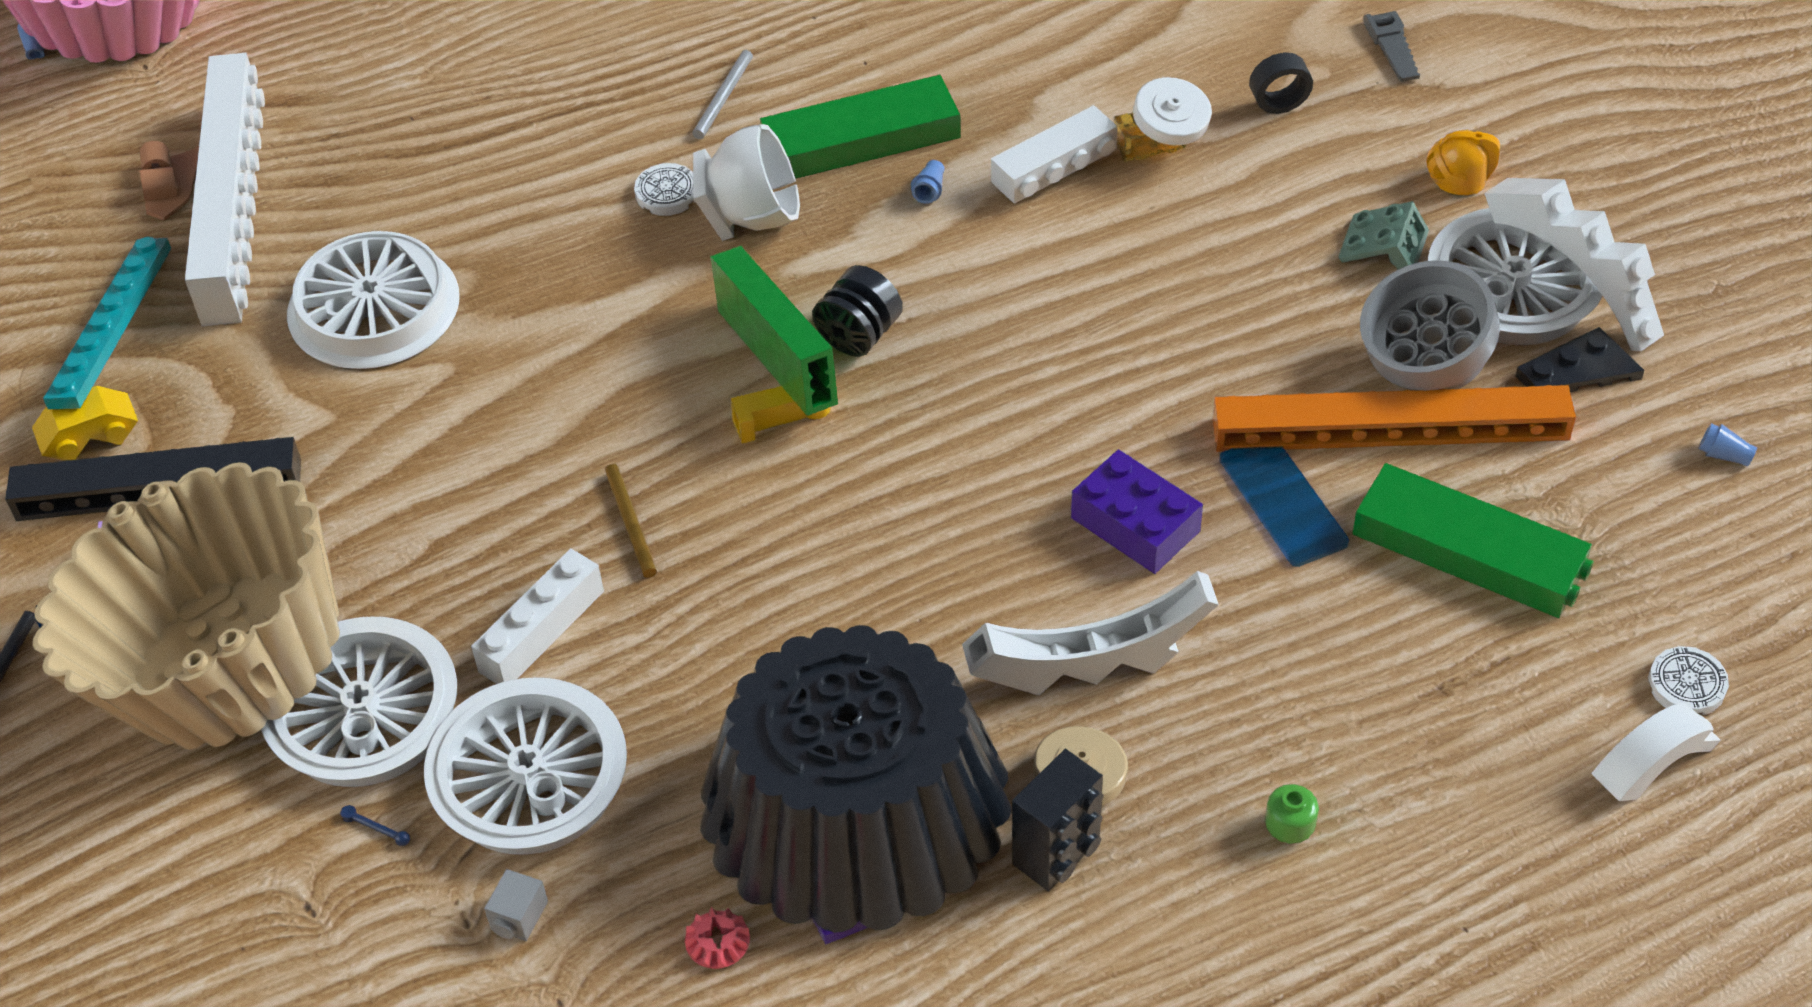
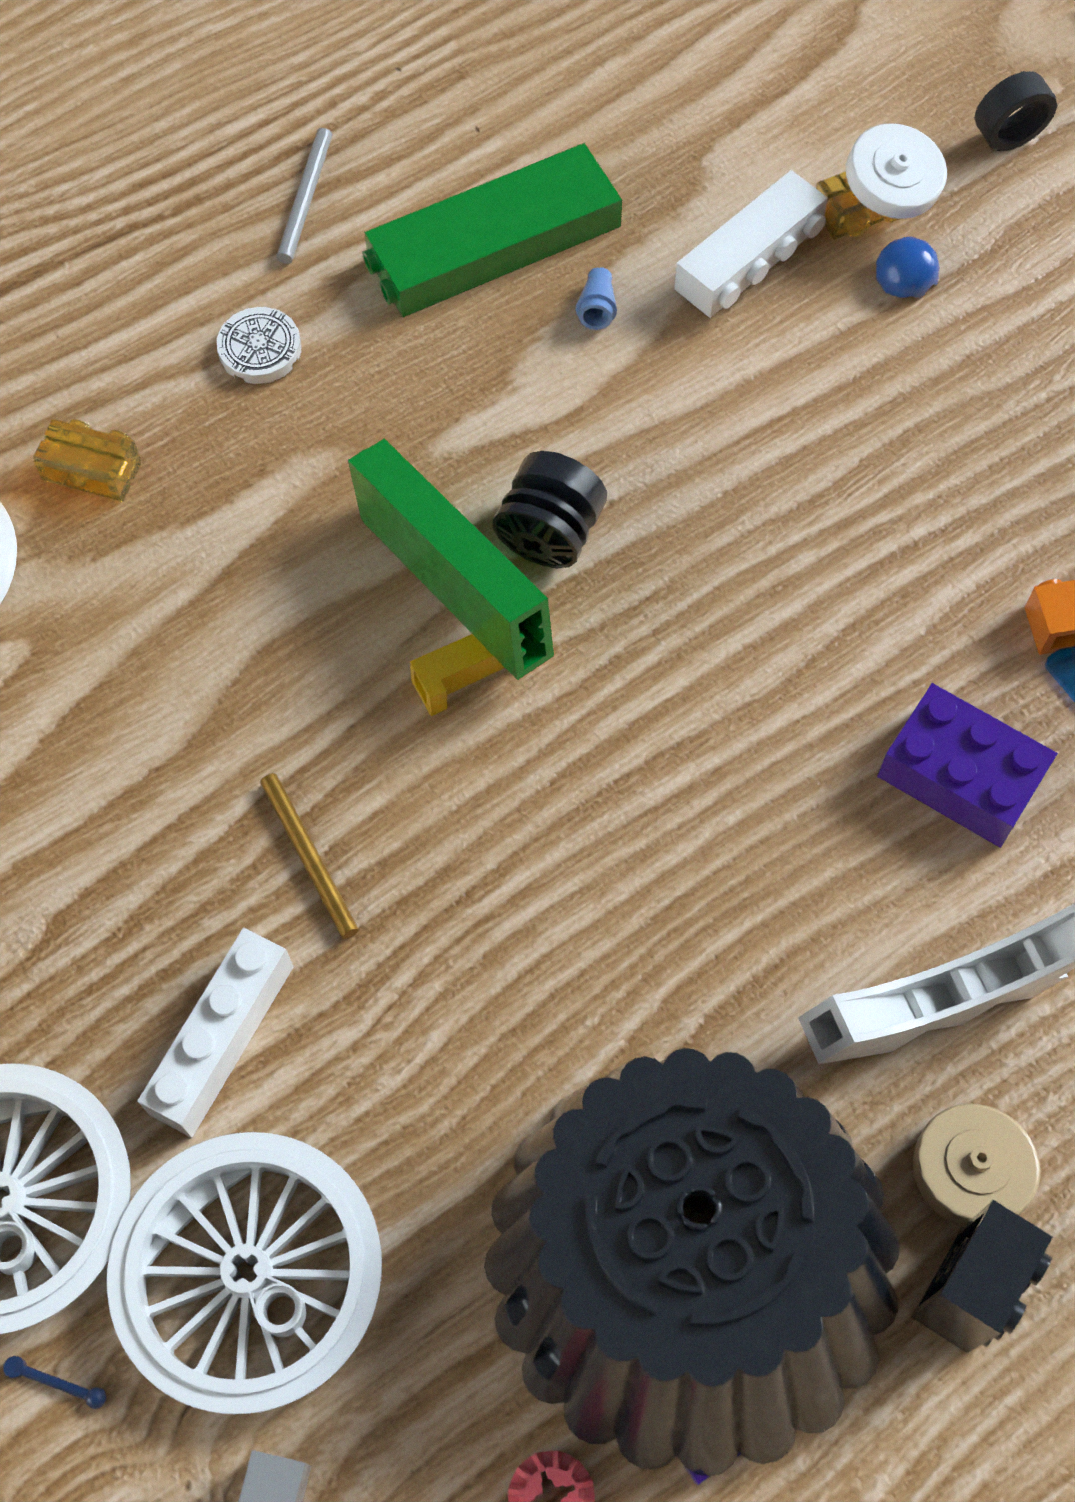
camera: 10 degrees left, 15 degrees up
(522, 249) = (87, 459): none -> clear yellow brick
(741, 180) = (358, 338): white plate -> none
(1175, 183) = (907, 267): none -> blue hair

